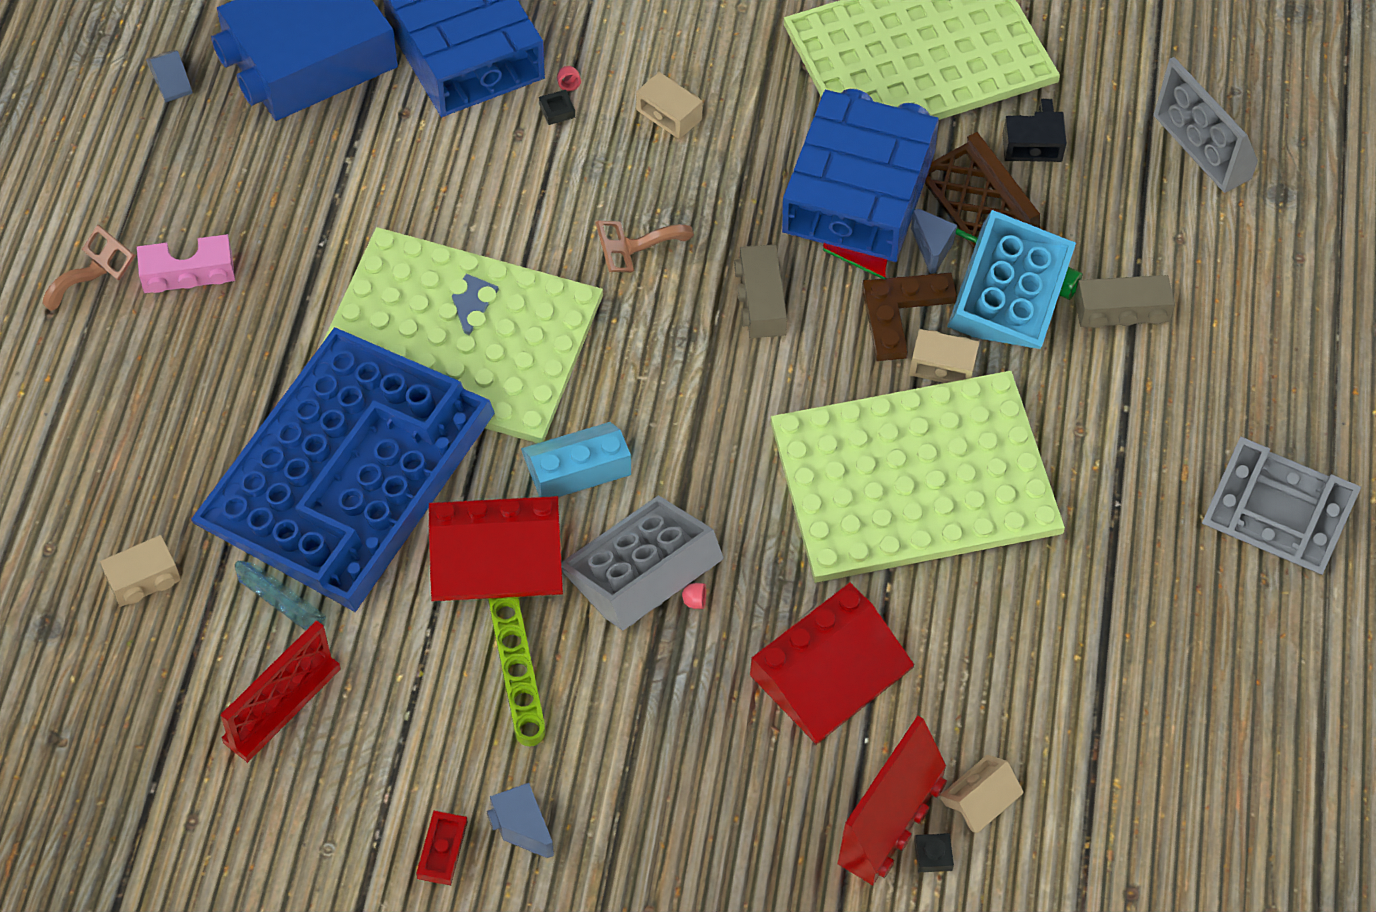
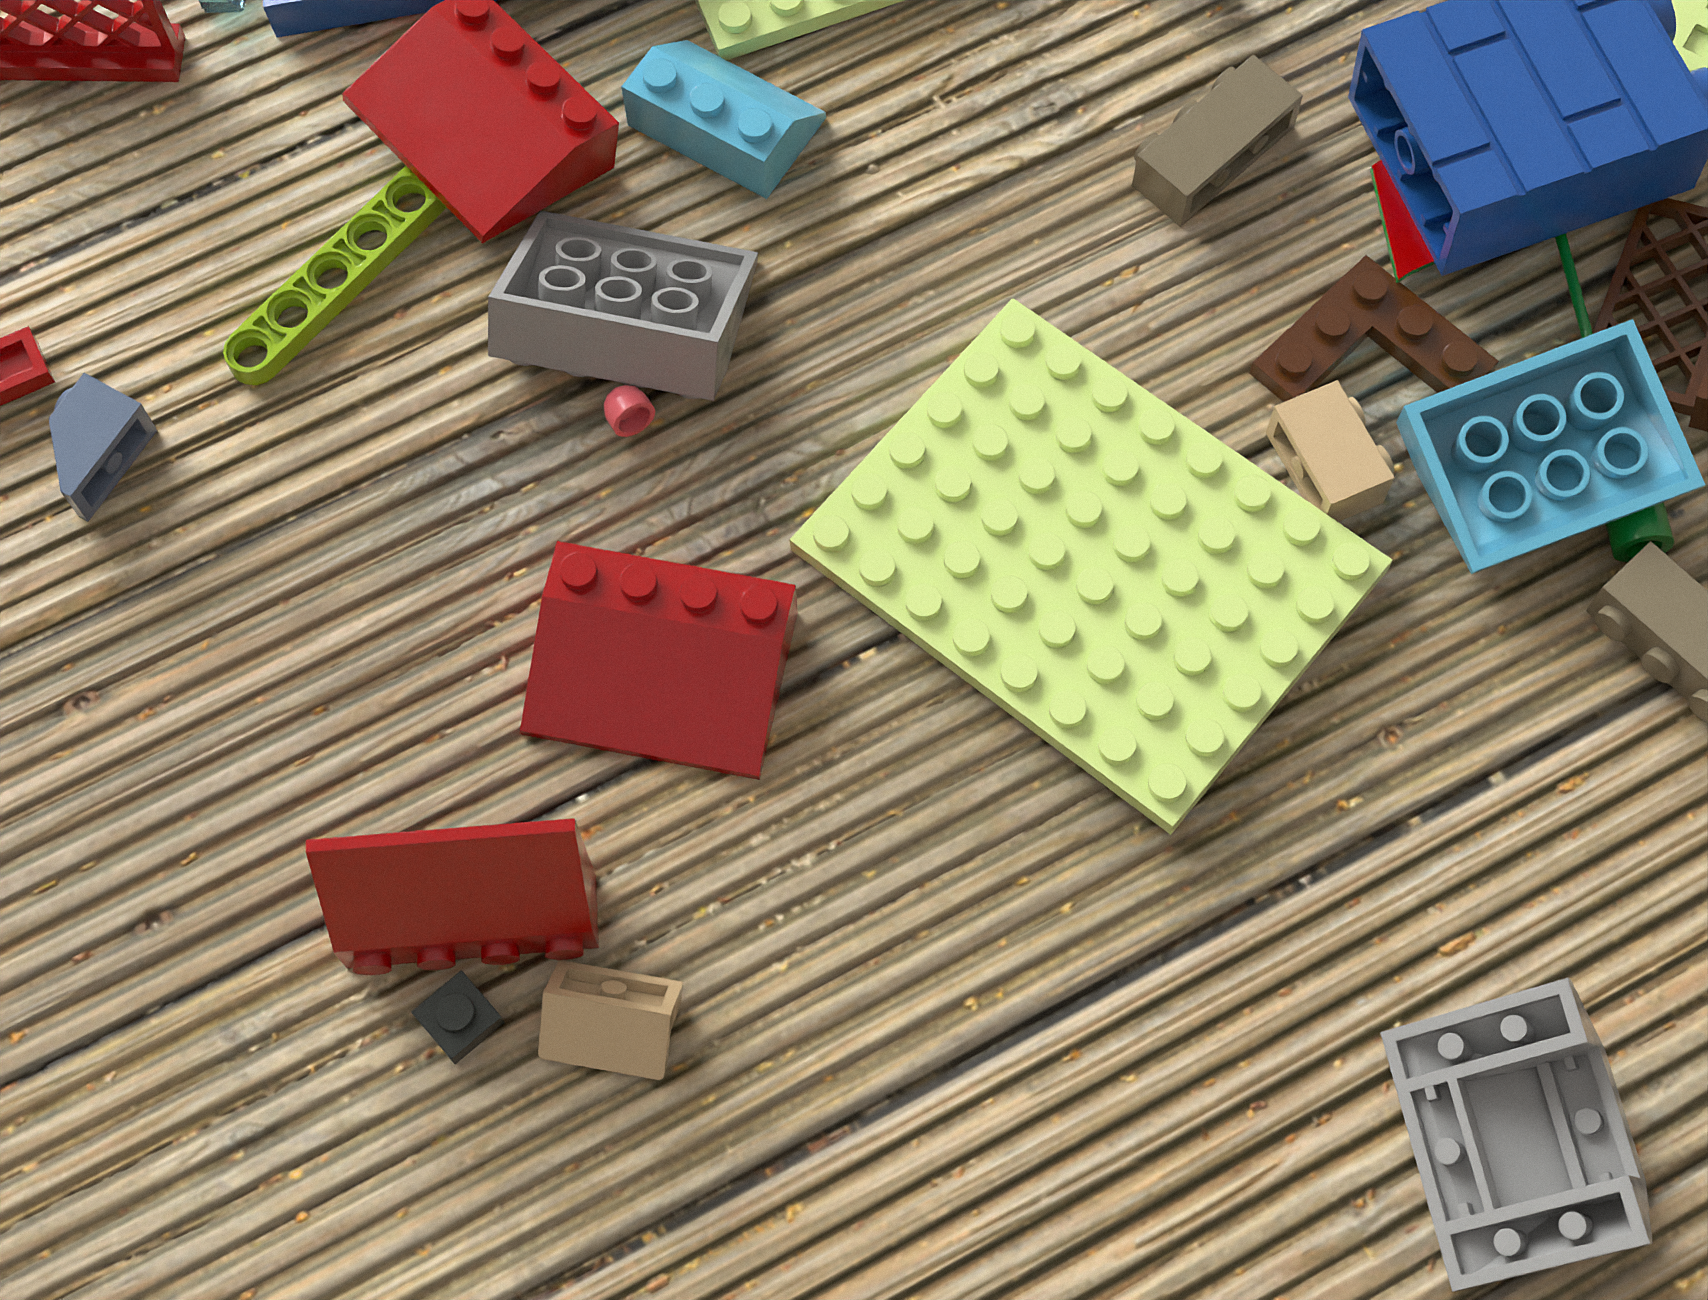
camera: 55 degrees right, 10 degrees up
(933, 237) = (1538, 298): sand blue slope -> none

